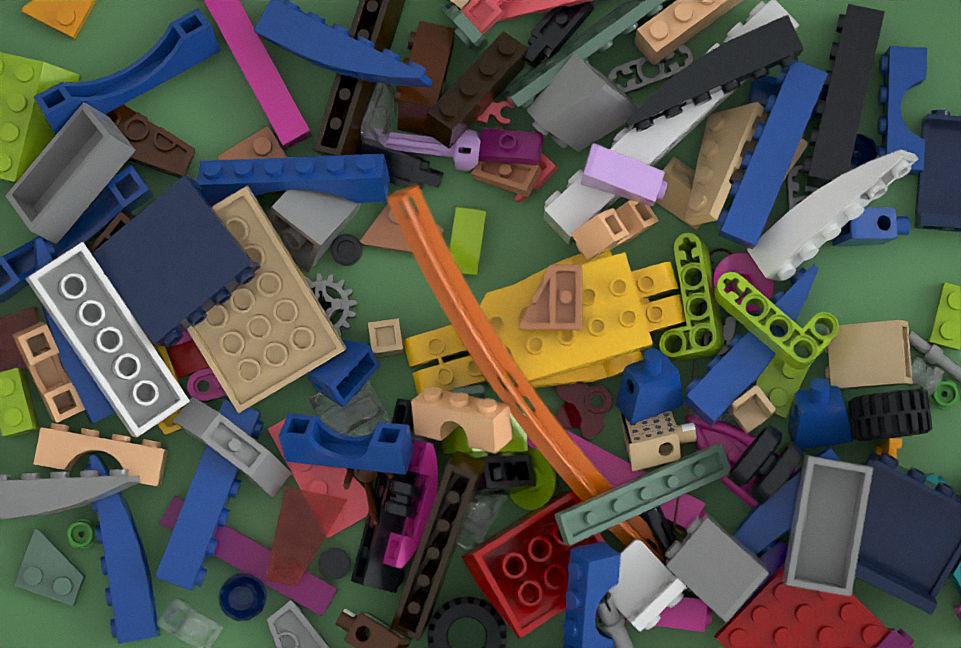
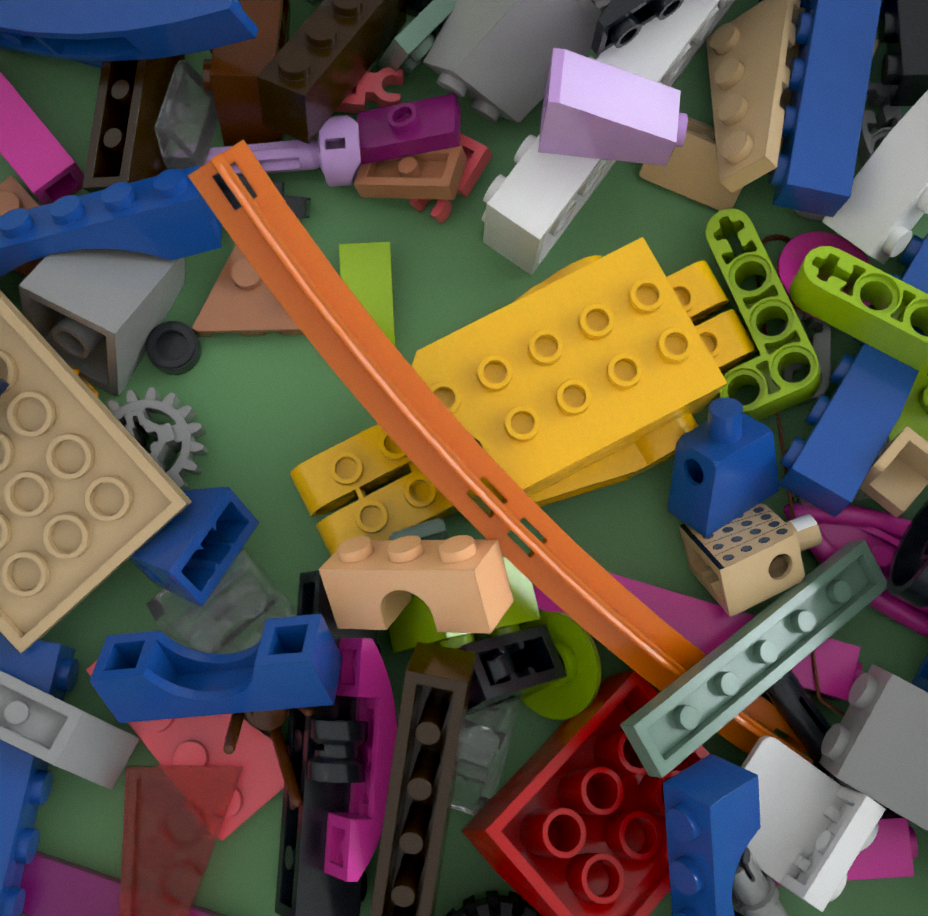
camera: 20 degrees left, 5 degrees down
(334, 563) = (242, 884): black tile -> none
(385, 338) = (260, 475): tan panel -> none
(556, 301) = (546, 336): nougat wing -> none
(579, 411) = (607, 533): dark red plate -> none
(613, 228) = (603, 217): light nougat arch -> none

